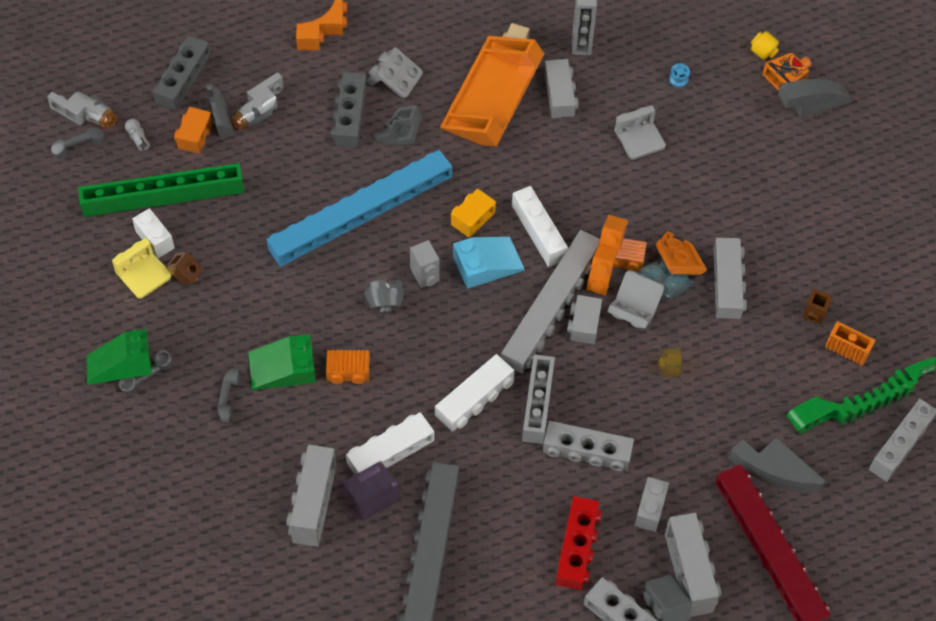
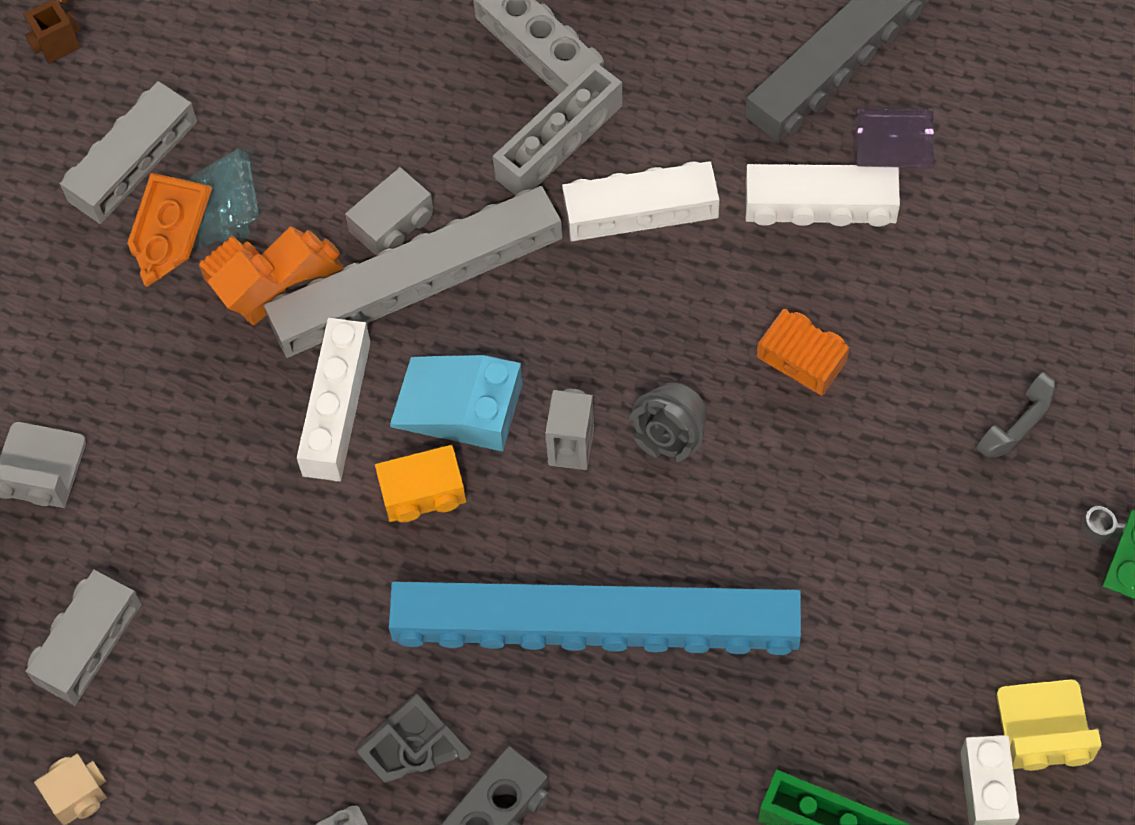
camera: 140 degrees left, 5 degrees up
(184, 268) = (972, 674): reddish brown brick -> none
(282, 363) = (902, 416): green slope -> none
(312, 495) = (987, 174): light grey brick -> none
(493, 89) = (201, 701): orange slope -> none
(637, 299) = (302, 190): light grey bracket -> none
(670, 362) = (324, 81): clear yellow plate -> none

